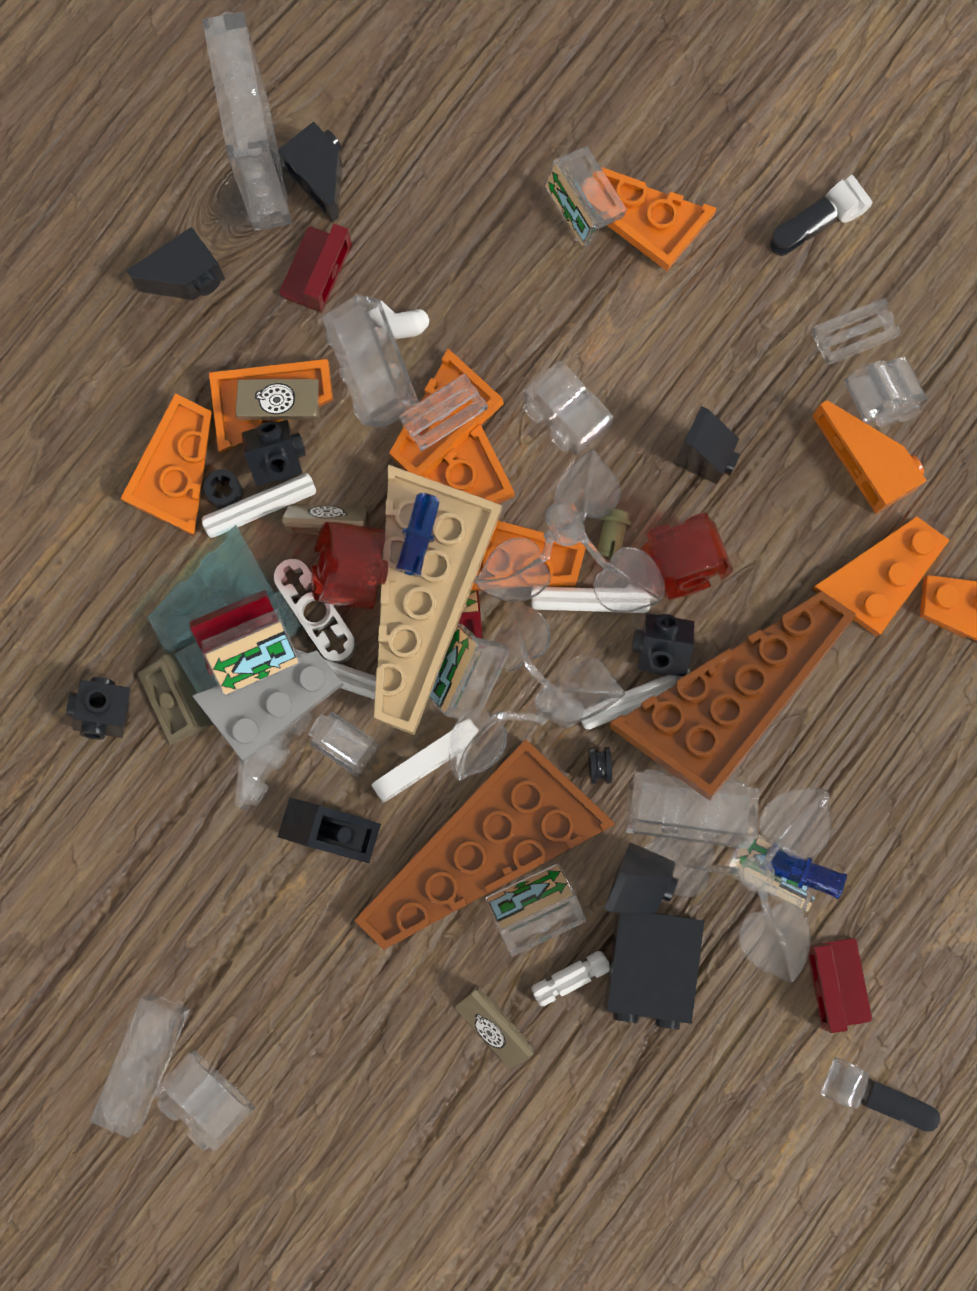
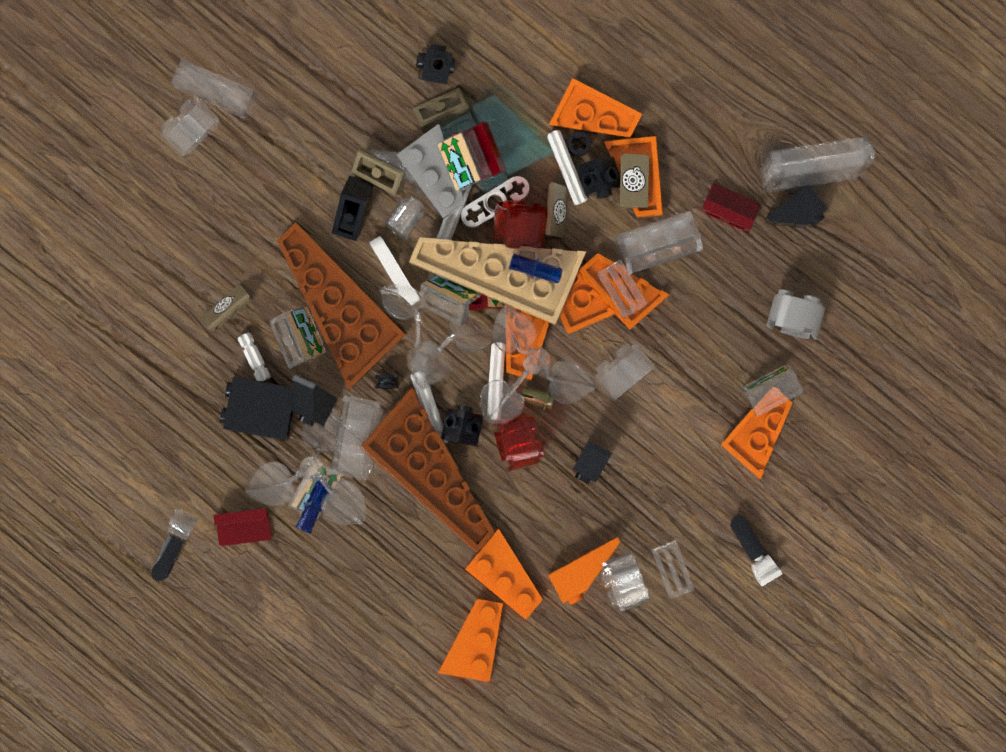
camera: 90 degrees right, 5 degrees up
(178, 269) = (730, 118): black slope -> none
(271, 790) = (378, 172): none -> dark tan slope
(406, 323) = (687, 266): white arm -> none
(473, 160) = (796, 315): none -> light grey brick

